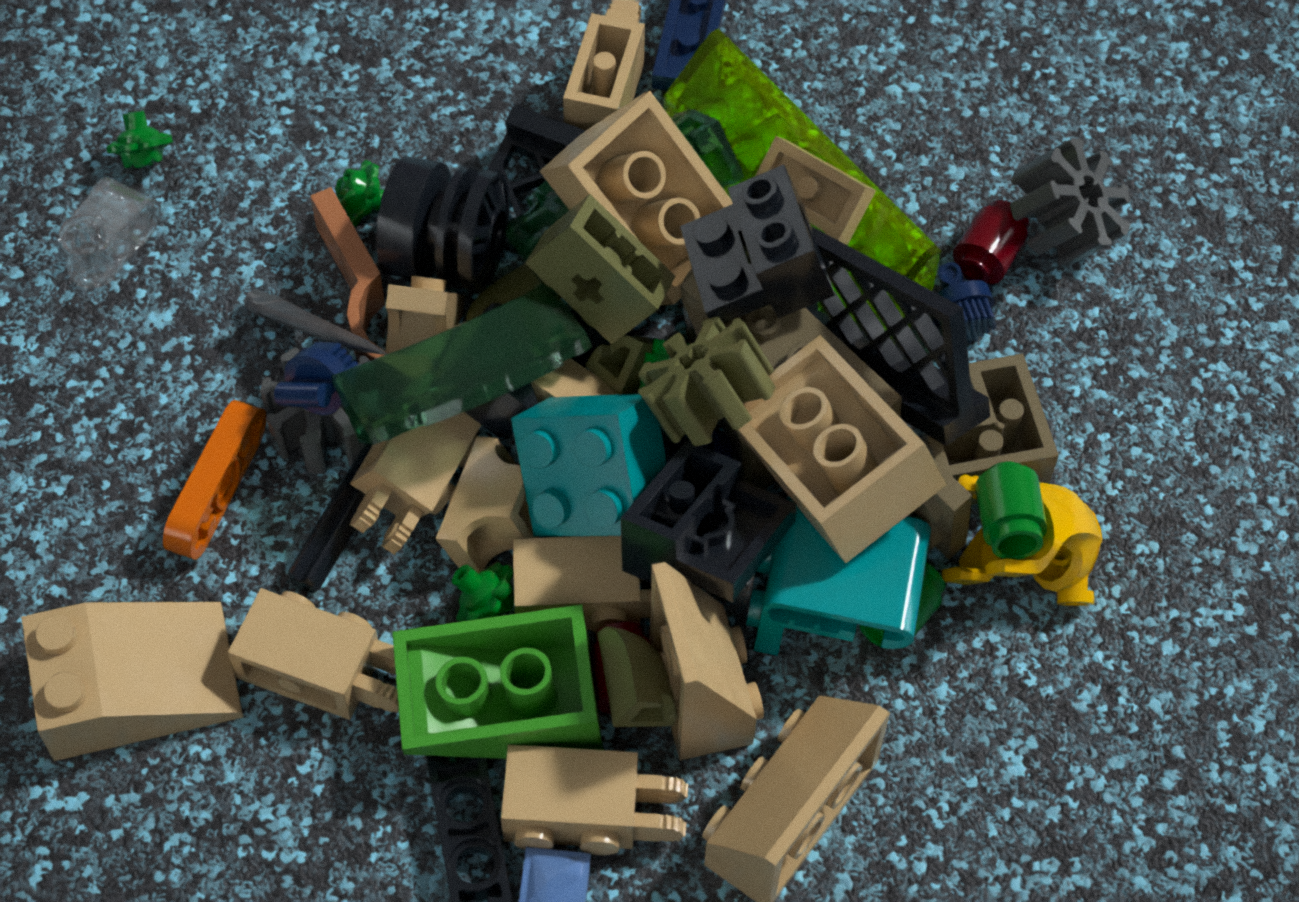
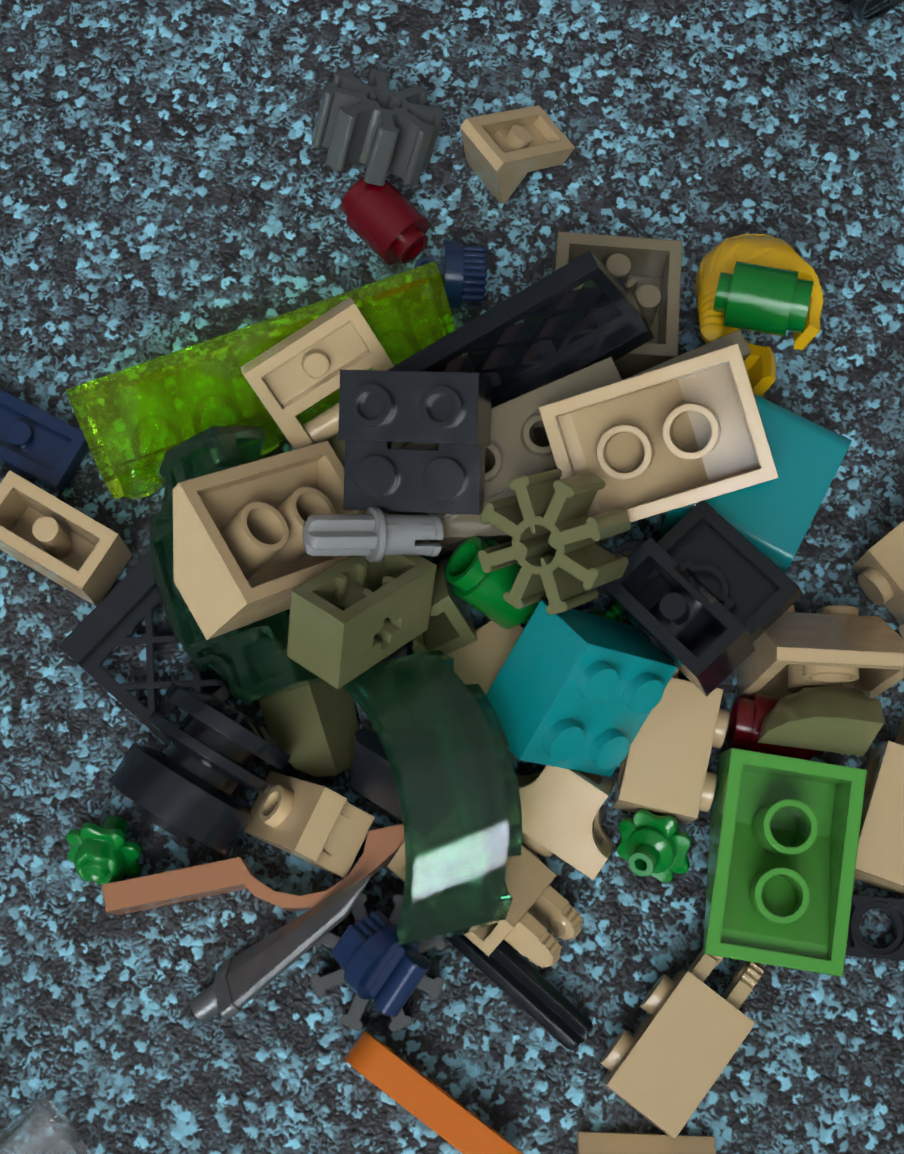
camera: 75 degrees left, 15 degrees up
(662, 247) = (372, 534): none -> light grey axle
(1106, 312) = (510, 145): none -> tan slope

